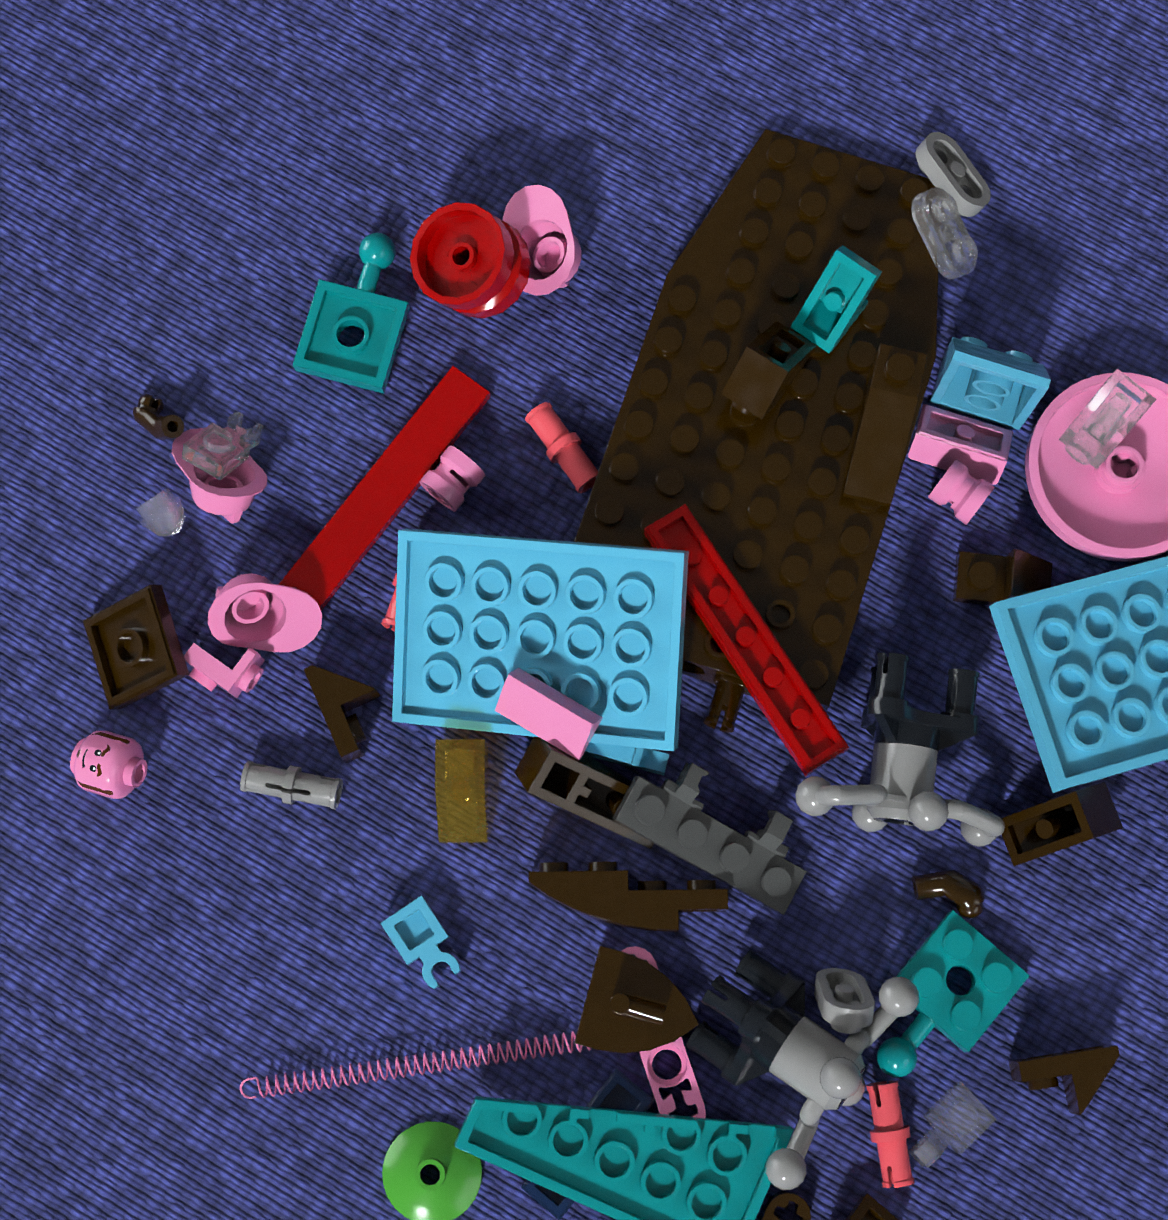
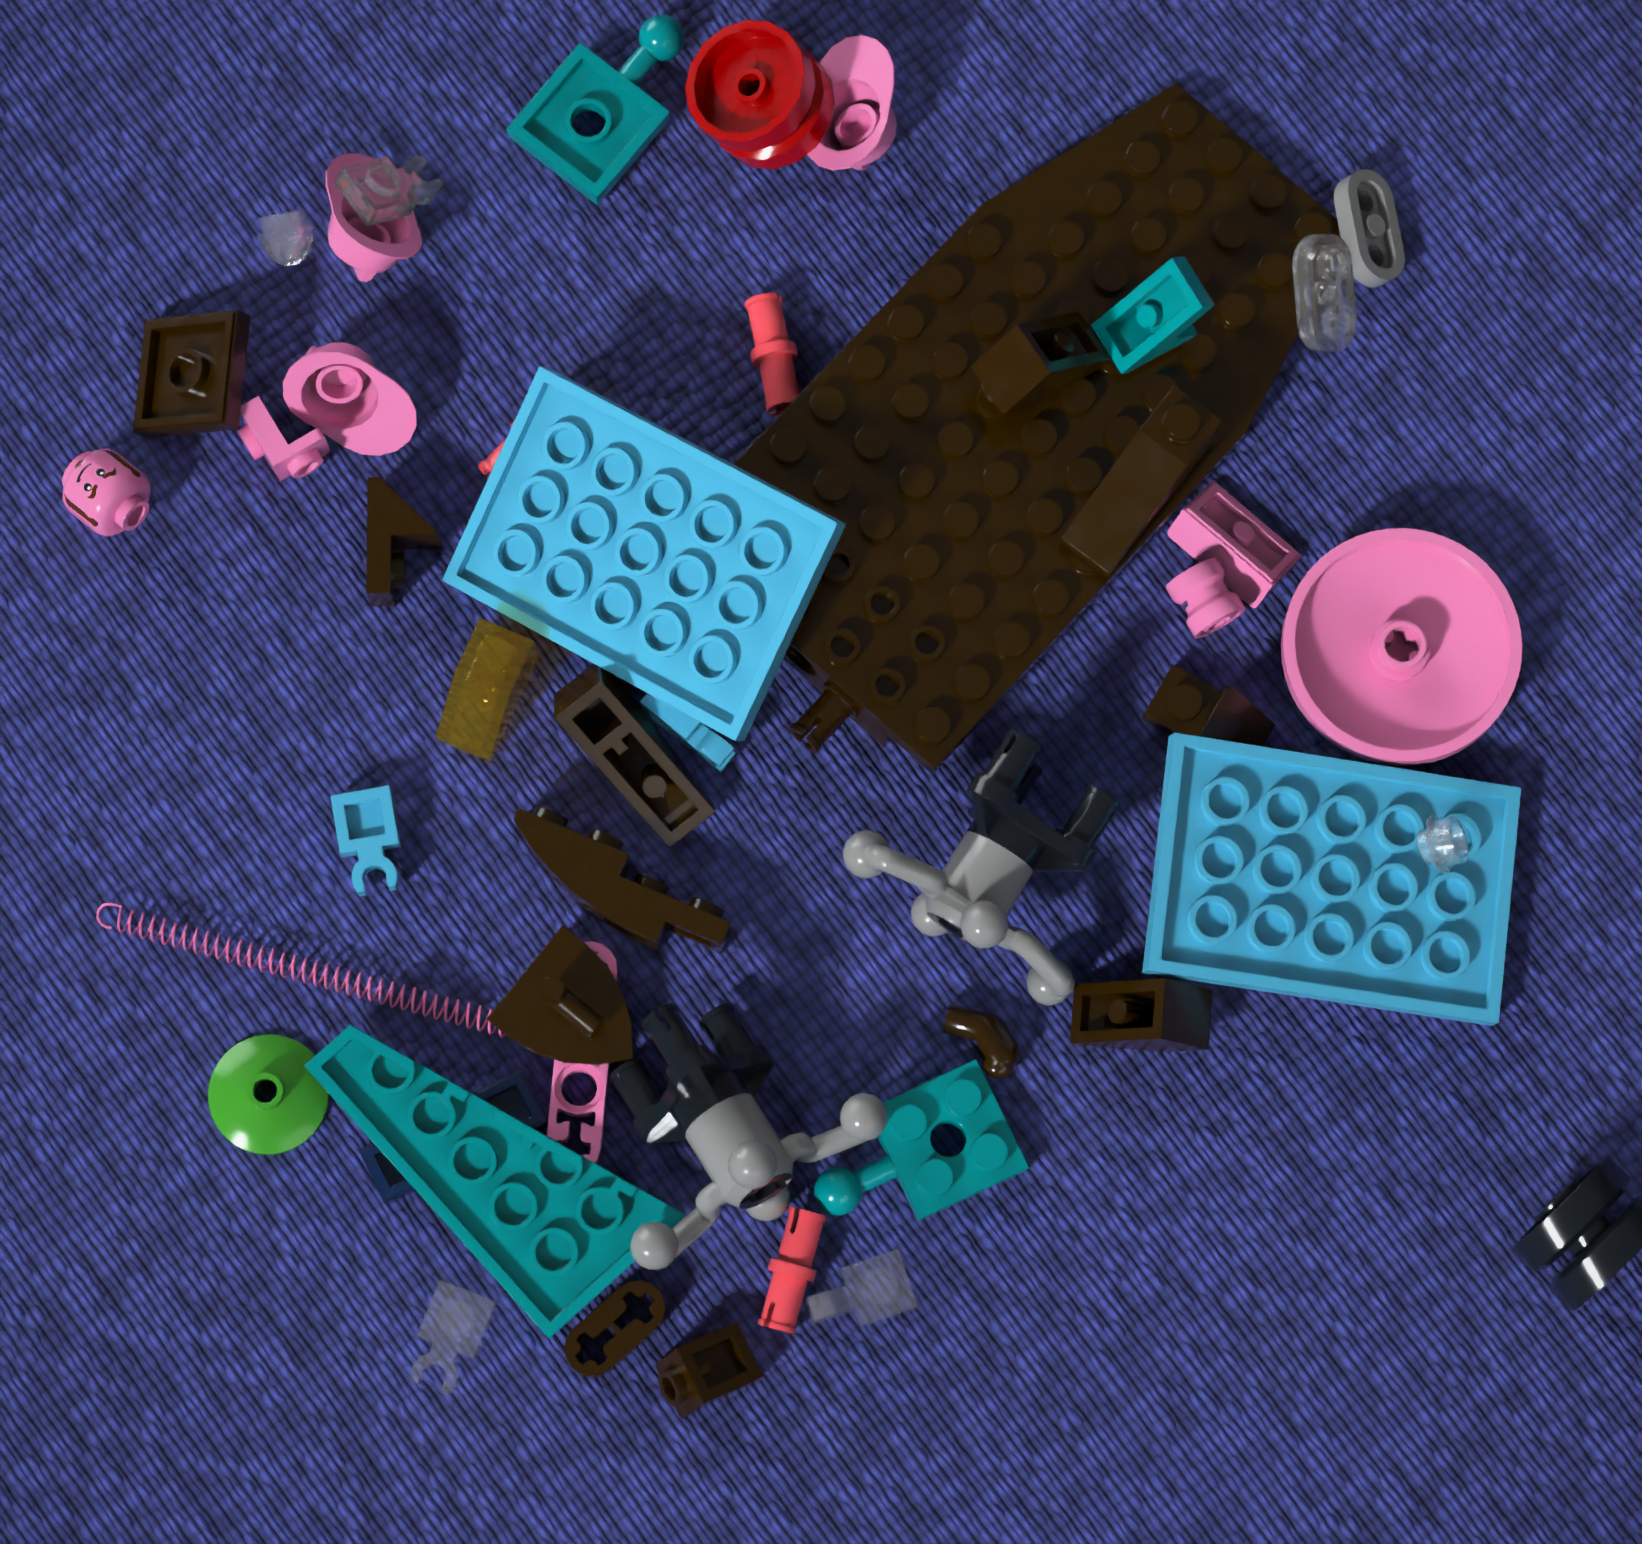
camera: 20 degrees right, 0 degrees up
(149, 417) = (318, 120): dark brown arm -> none
(291, 785) = (299, 602): light grey pin -> none
(387, 487) = (555, 313): red tile -> none
(452, 478) = (630, 335): bright pink wheel -> none
(547, 713) = (615, 640): bright pink slope -> none
(675, 823) = (766, 906): dark grey hinge -> none
(750, 644) = (873, 657): red tile -> none
(844, 999) = (804, 1098): light grey plate -> none
(989, 382) = (1291, 482): medium azure slope -> none
(1080, 1070) = (1037, 1288): dark brown slope -> none
(1106, 420) = (1392, 582): clear slope -> none

